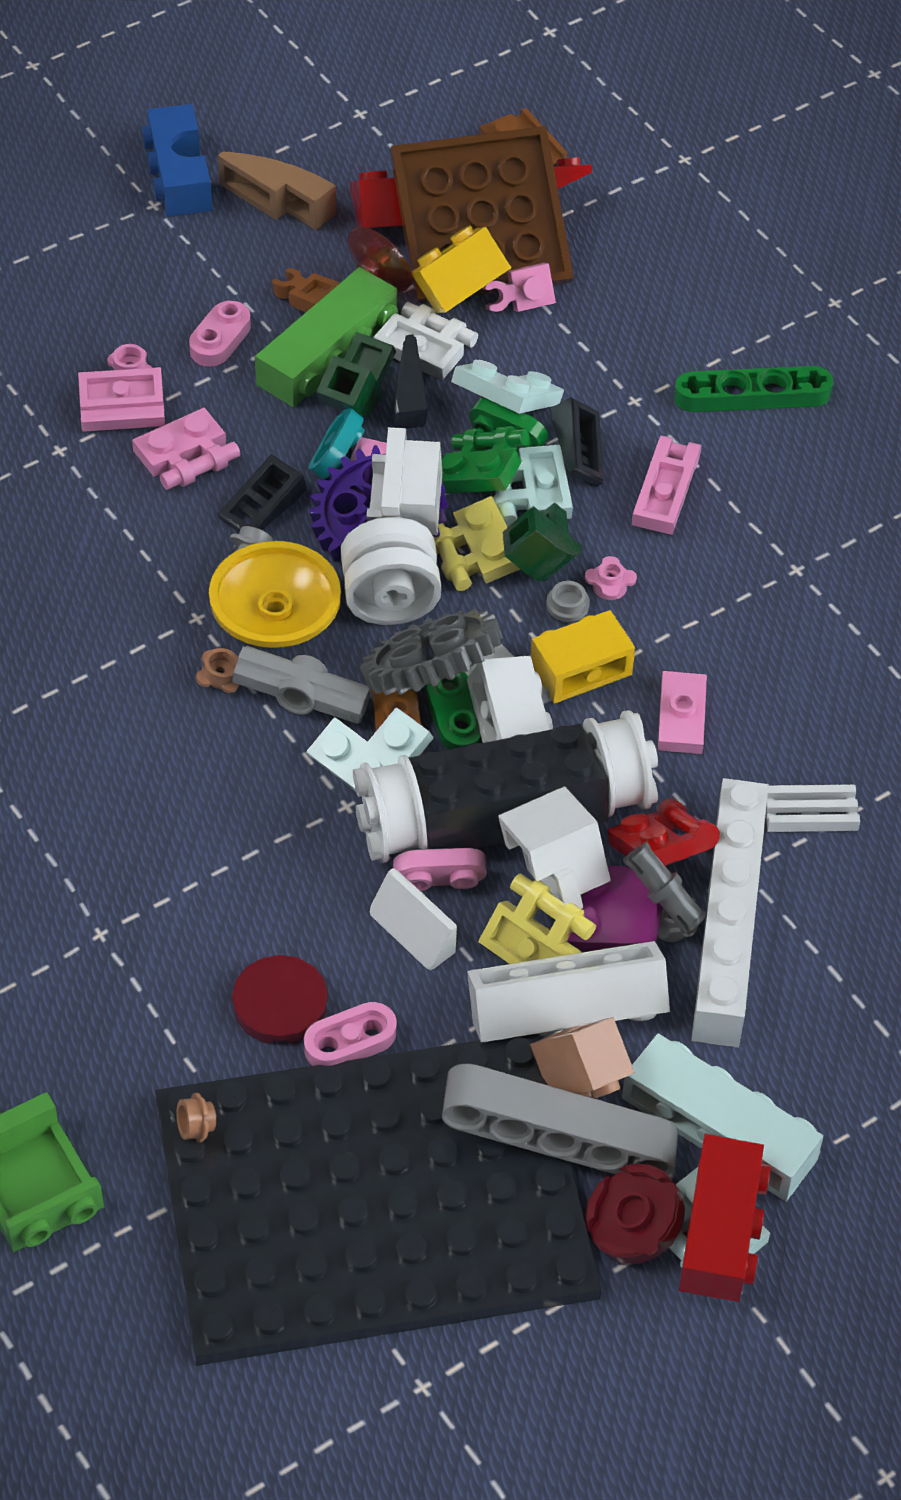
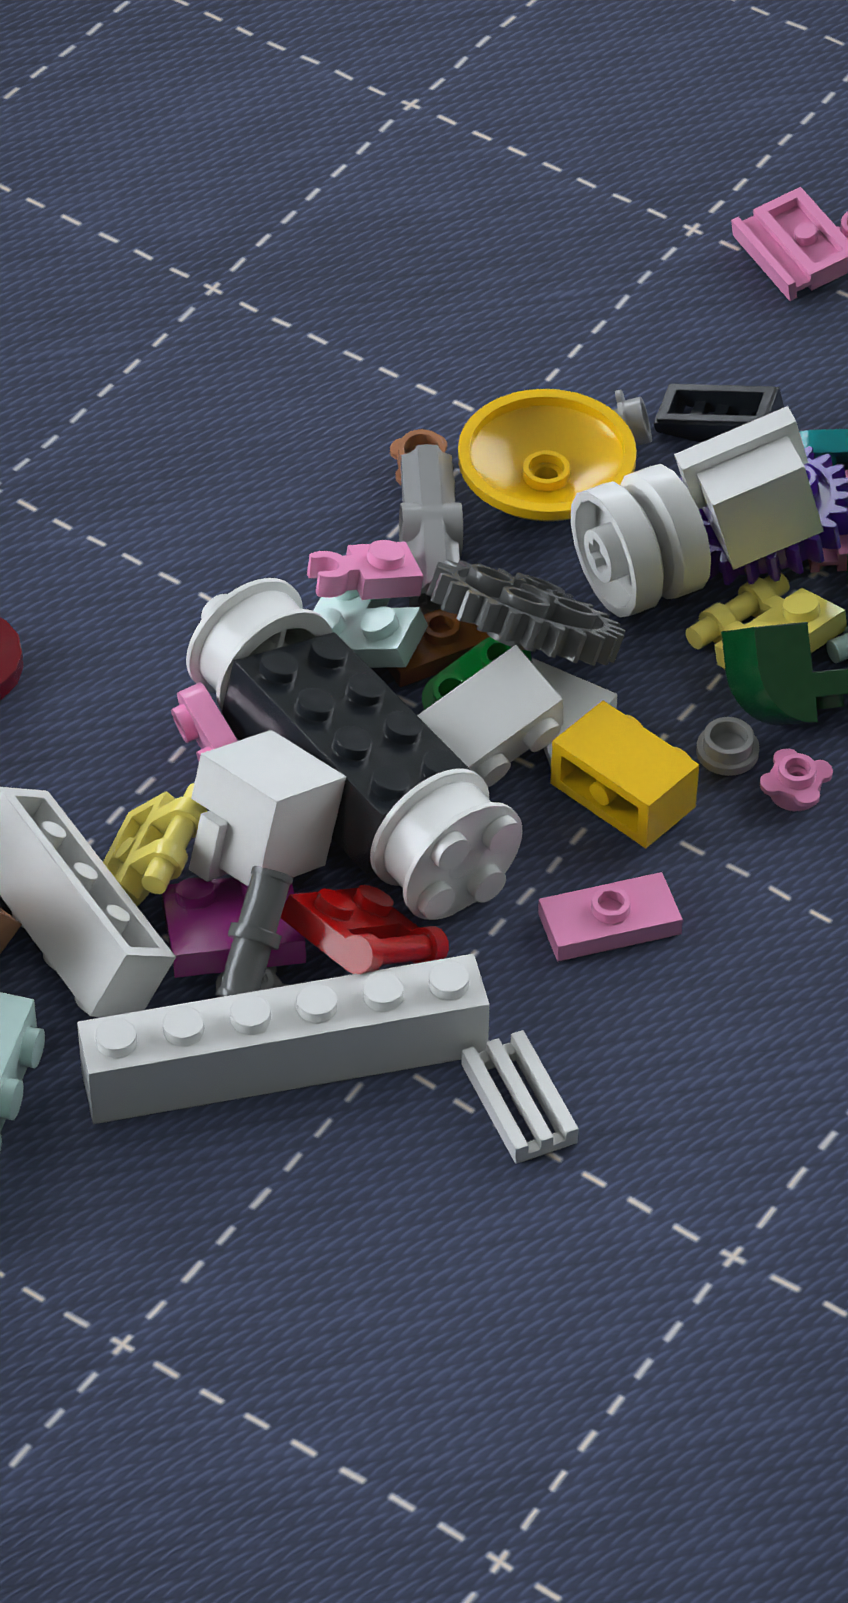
camera: 70 degrees right, 5 degrees down
(175, 448) = (758, 326): bright pink plate -> none
(345, 721) = (372, 569): none -> bright pink plate
(414, 920) = (130, 745): white slope -> none

